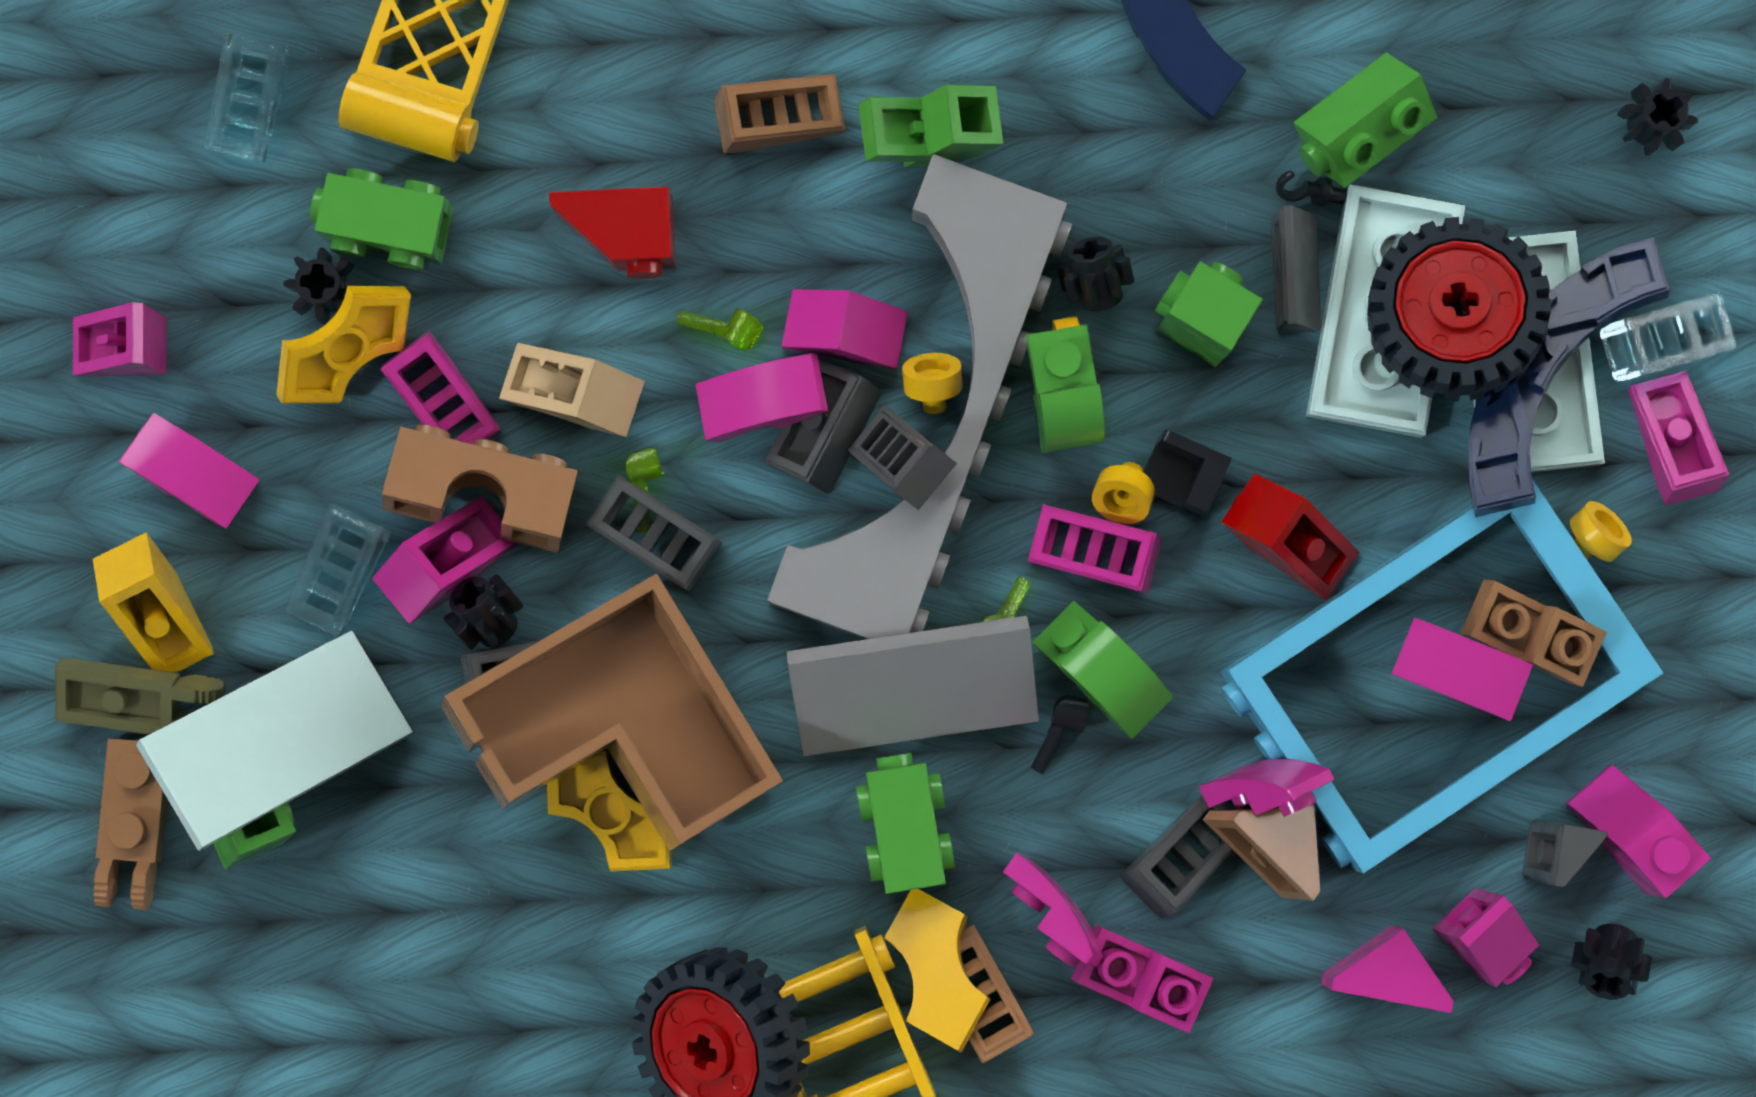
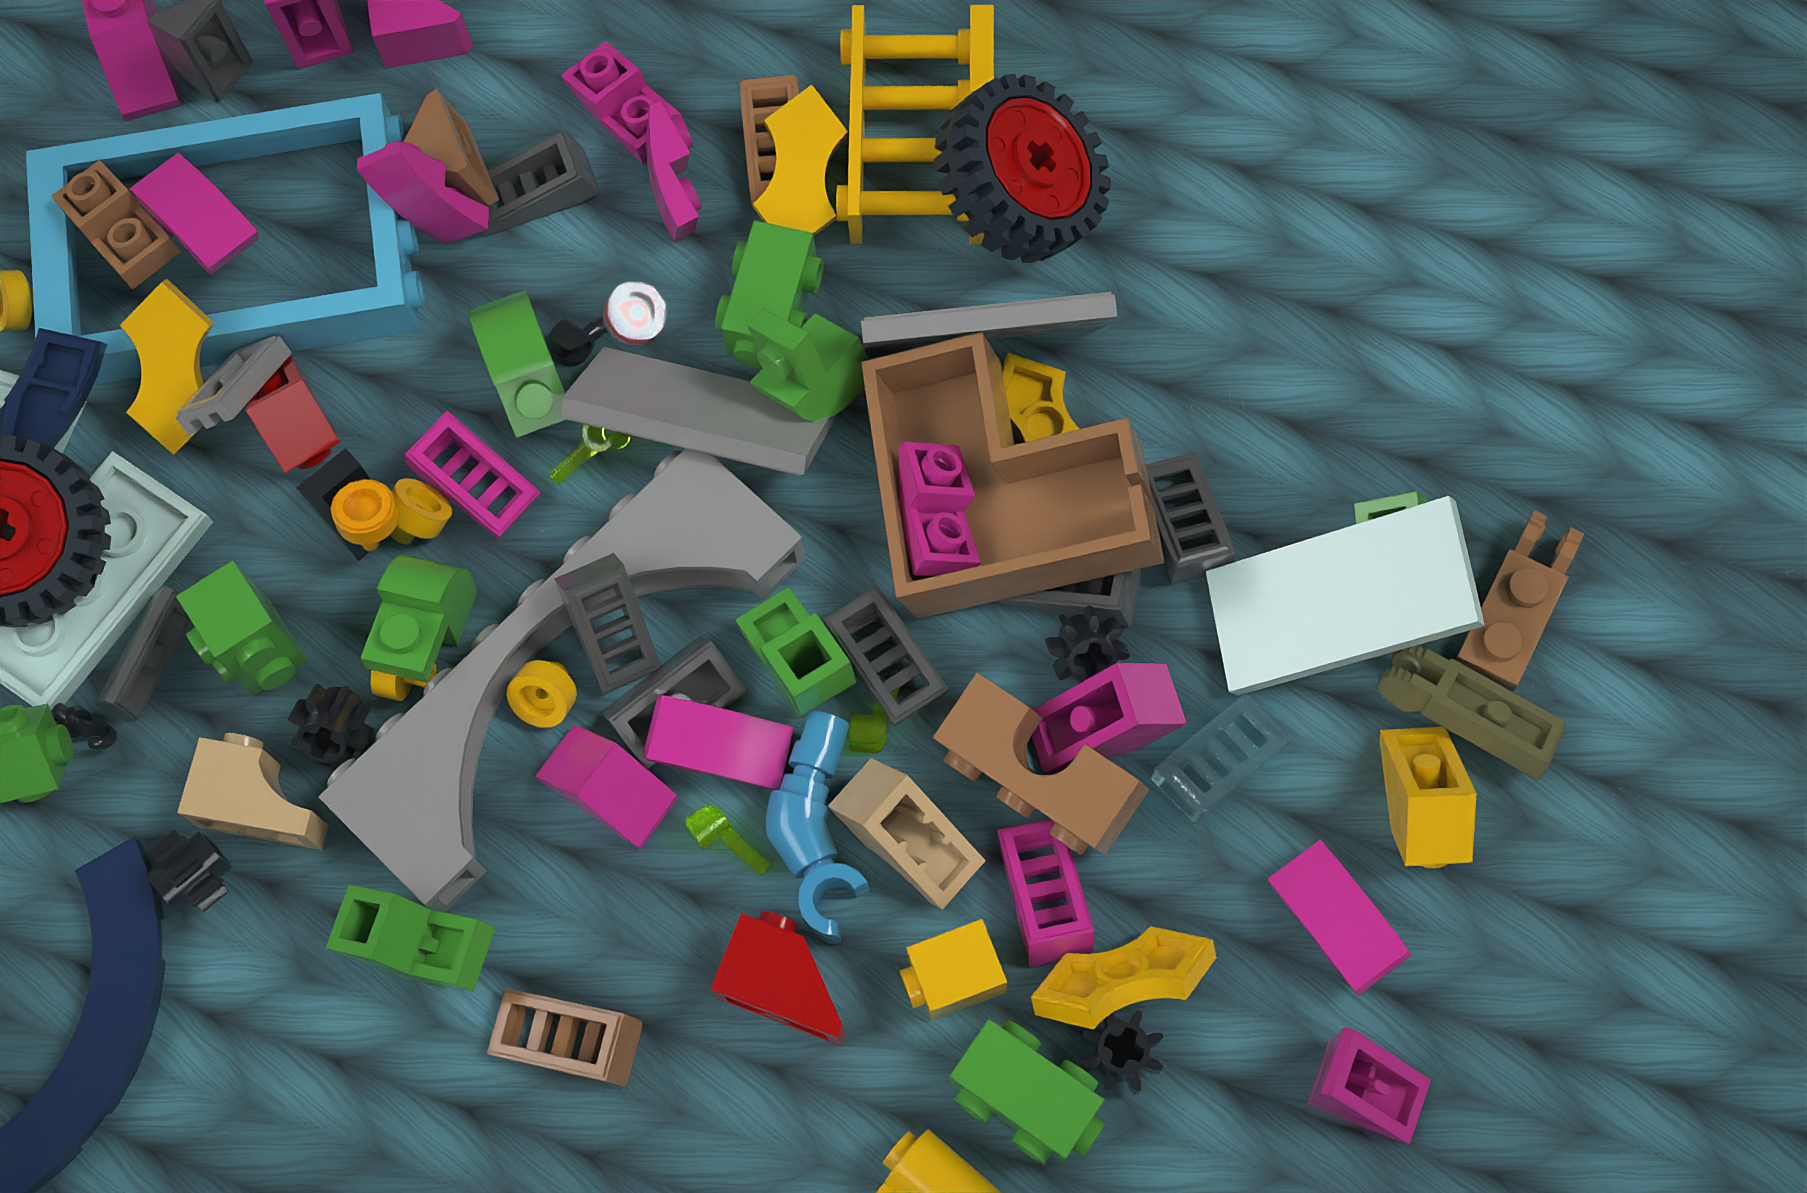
camera: 150 degrees left, 15 degrees down
(403, 753) = (1194, 561): none -> dark grey slope
(484, 292) = (953, 971): none -> yellow brick
(663, 359) = (799, 823): none -> dark azure piece
(666, 679) = (932, 506): none -> dark pink slope
(690, 873) = (993, 320): none -> light grey tile
(729, 499) = (796, 652): none -> bright green brick
(831, 762) = (808, 367): none -> bright green brick
(1025, 763) = (634, 313): none -> clear tile
(1140, 185) = (238, 793): none -> tan arch
(1148, 106) = (188, 871): none -> black gear
(1156, 458) = (365, 513): none -> light orange tile
(1339, 529) = (233, 384): none -> light grey tile
(1419, 542) = (169, 341): none -> yellow tile

